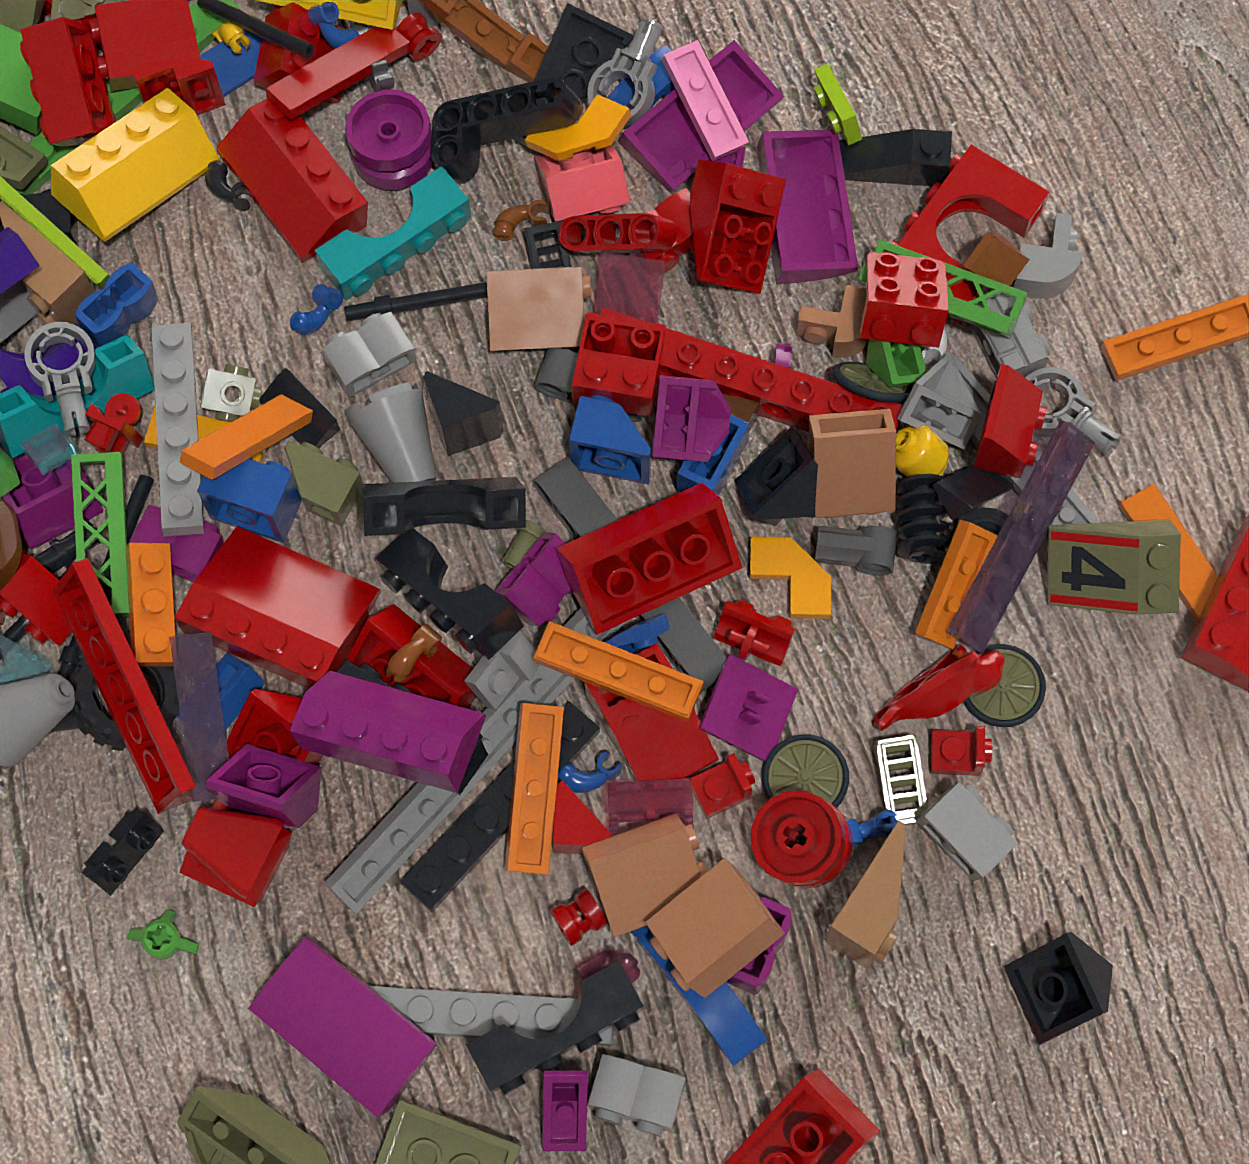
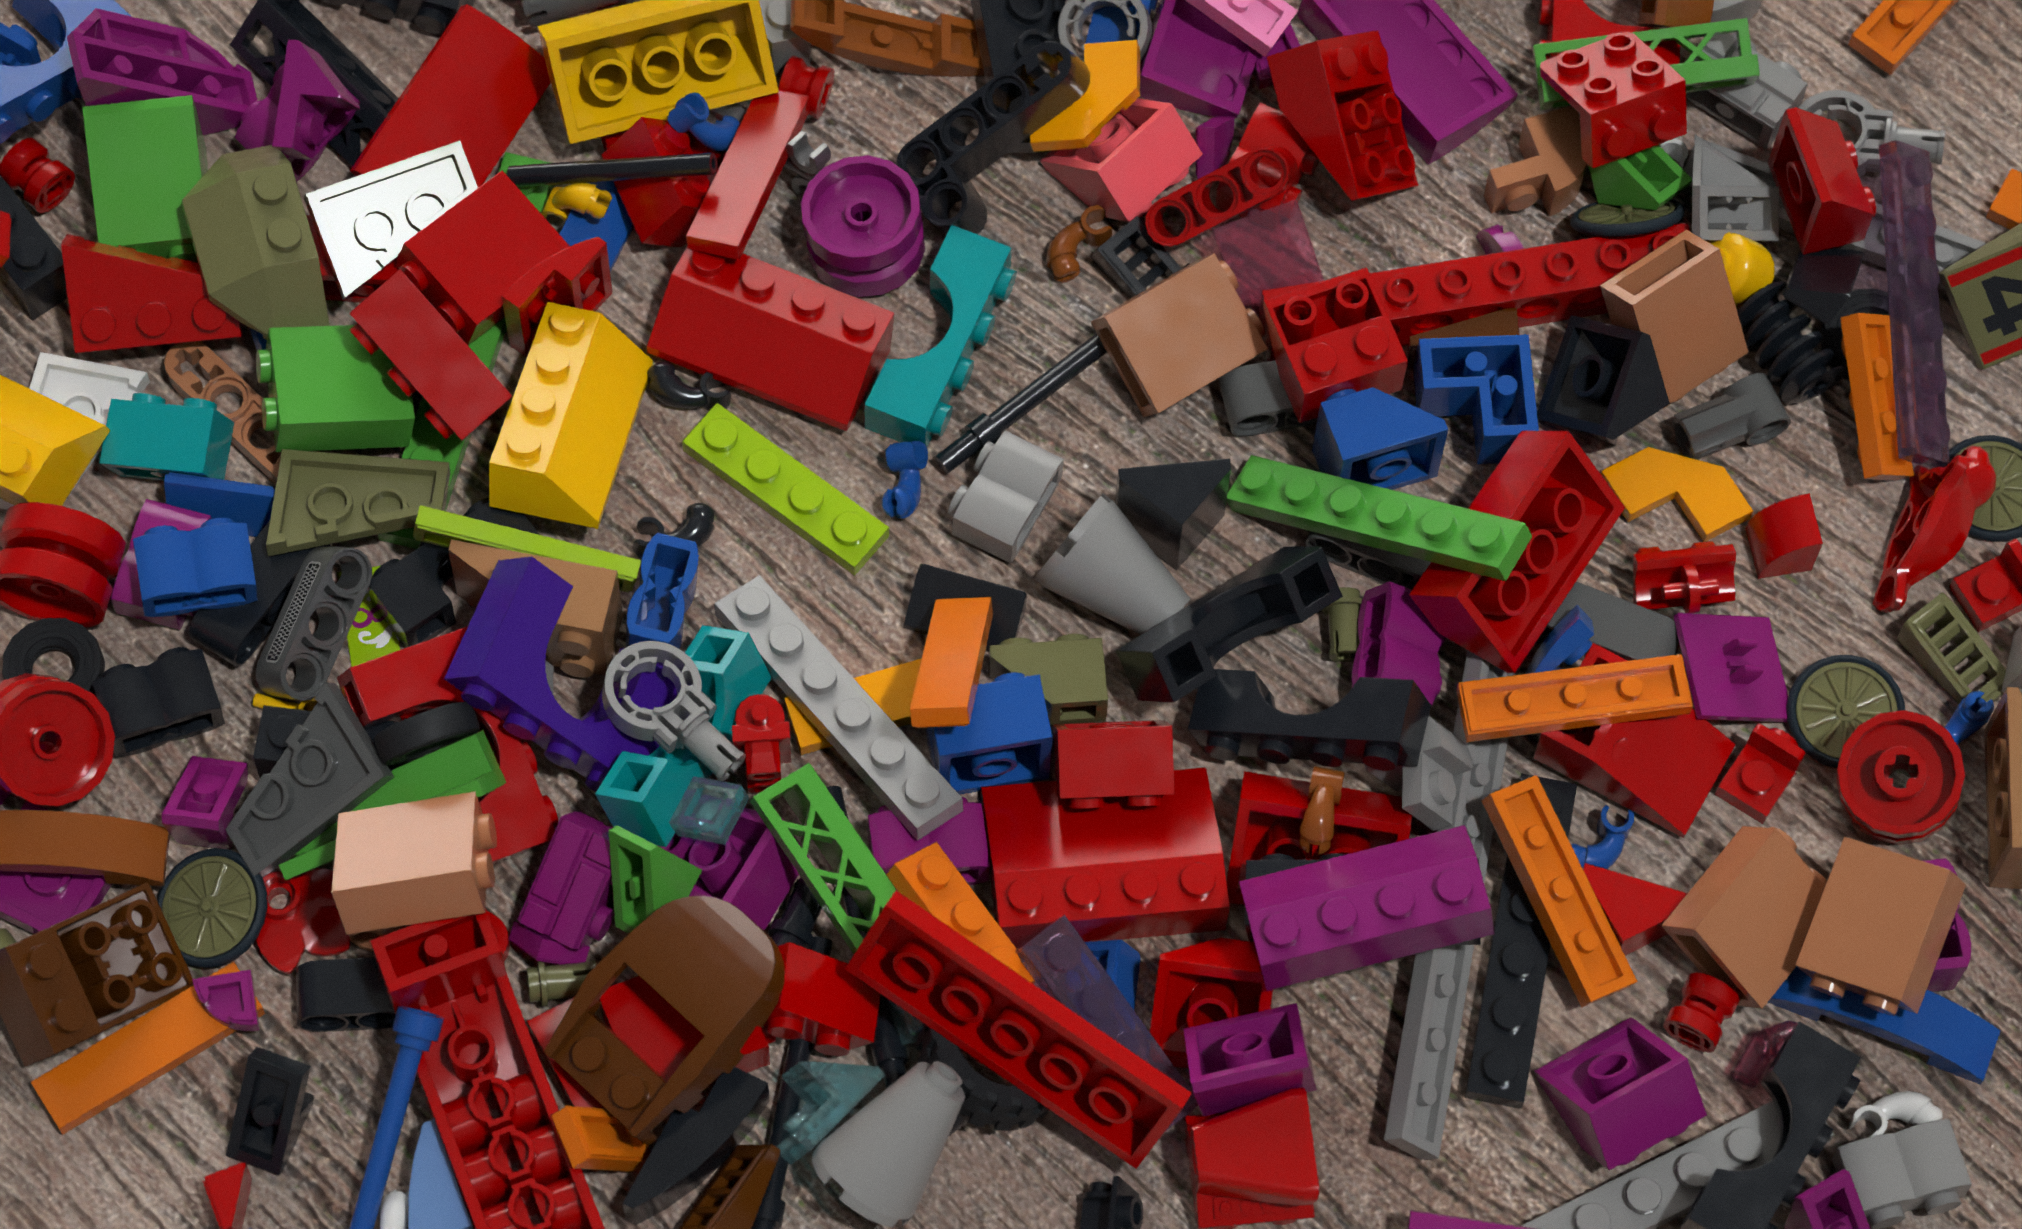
camera: 35 degrees left, 5 degrees down
(169, 276) = (695, 527): none -> black arm
(214, 392) = (873, 630): brick -> none
(244, 279) = (785, 489): none -> lime plate
(316, 552) = (1113, 761): none -> red slope
(493, 939) = (1622, 1093): none -> magenta slope
(573, 490) = (1379, 517): none -> bright green plate
(646, 197) = (1215, 143): none -> magenta tile
(649, 801) = (1695, 833): clear pink hinge -> none
(669, 1051) = (1905, 1106): none -> white arm
(689, 419) = (1461, 363): magenta slope -> none
(837, 643) = (1784, 537): none -> red brick

